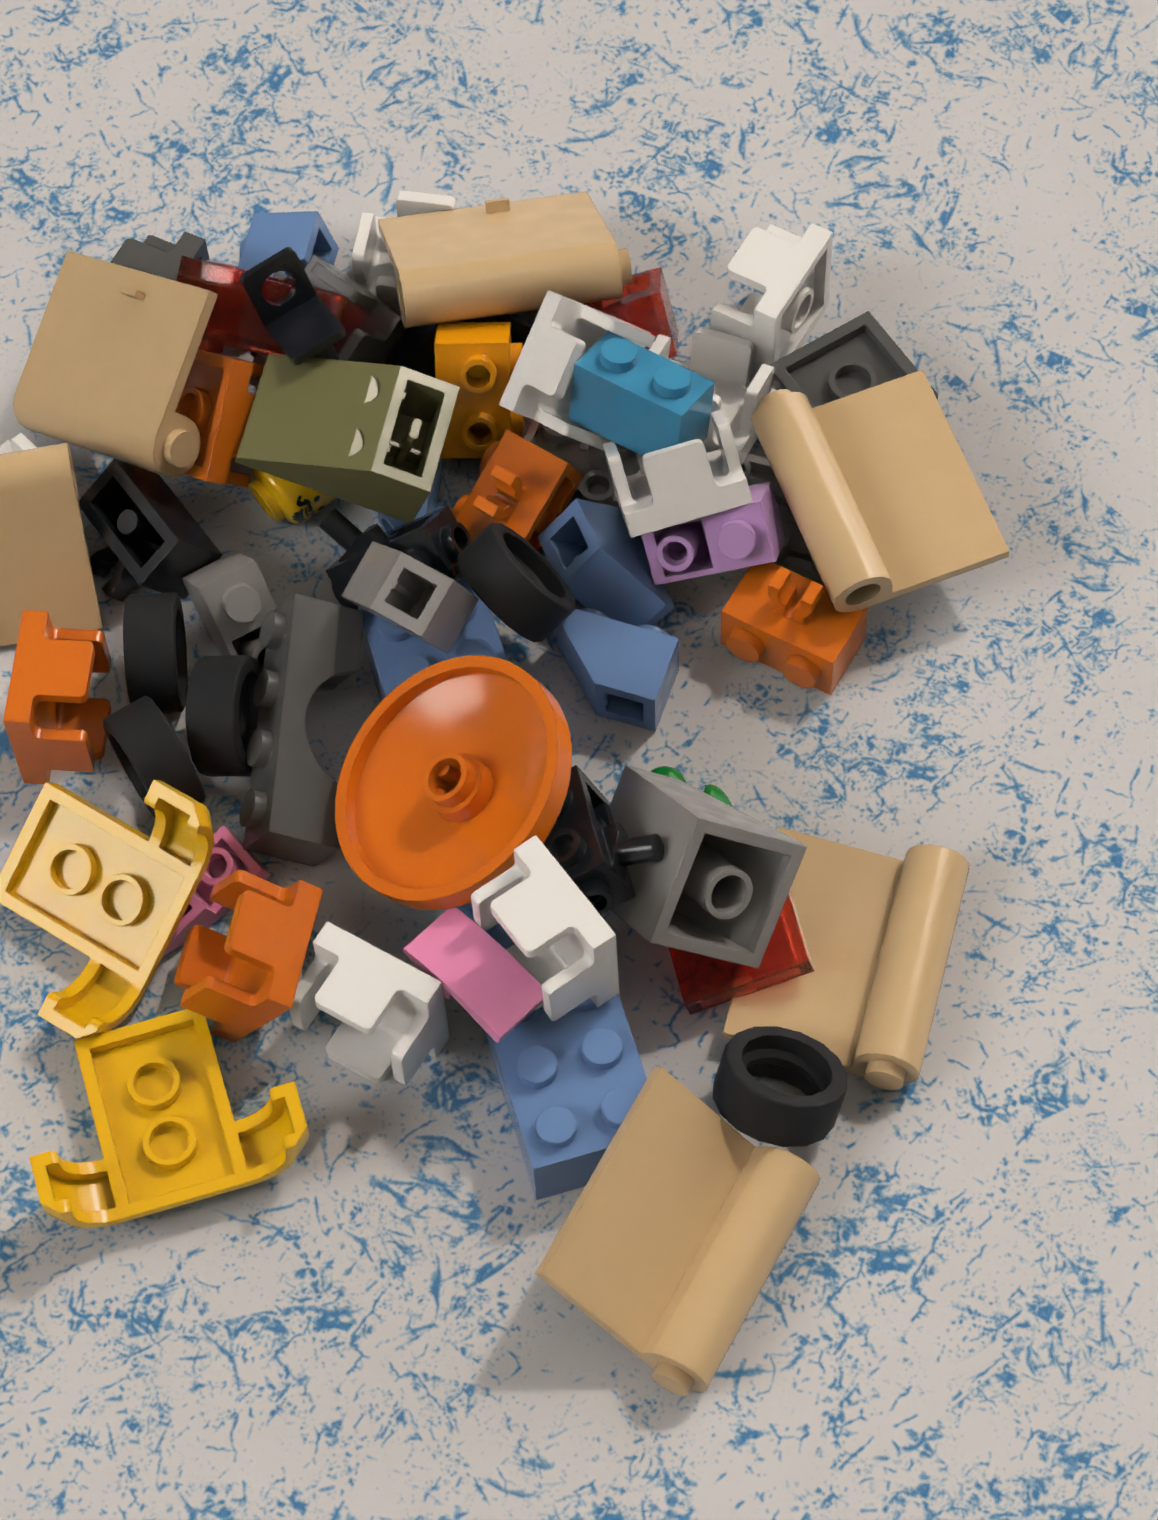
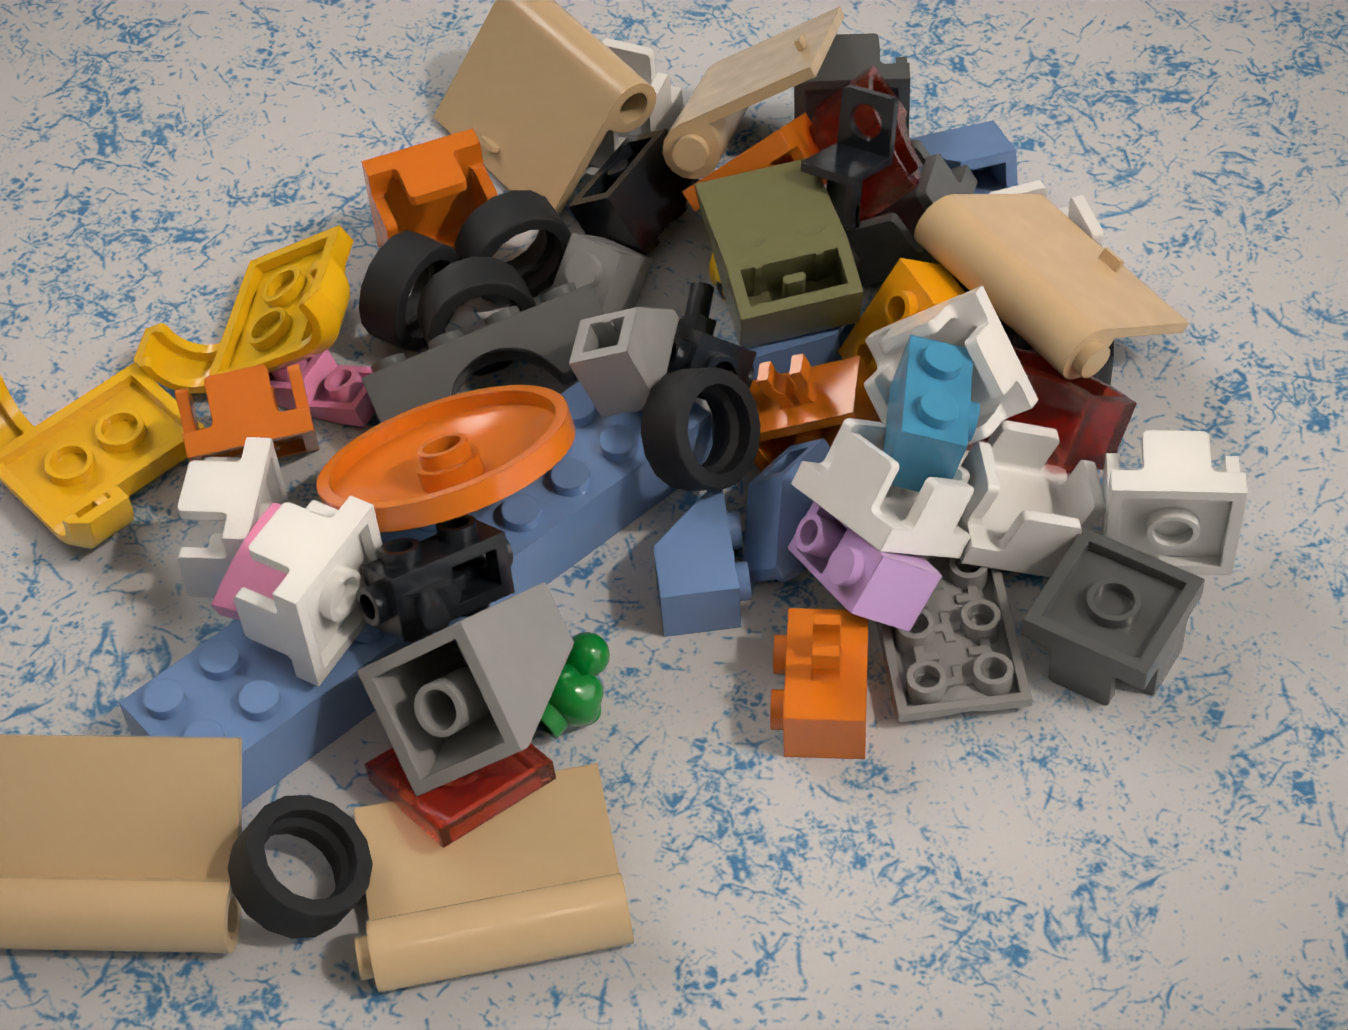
camera: 65 degrees right, 10 degrees down
(878, 489) = (989, 665): tan door -> none

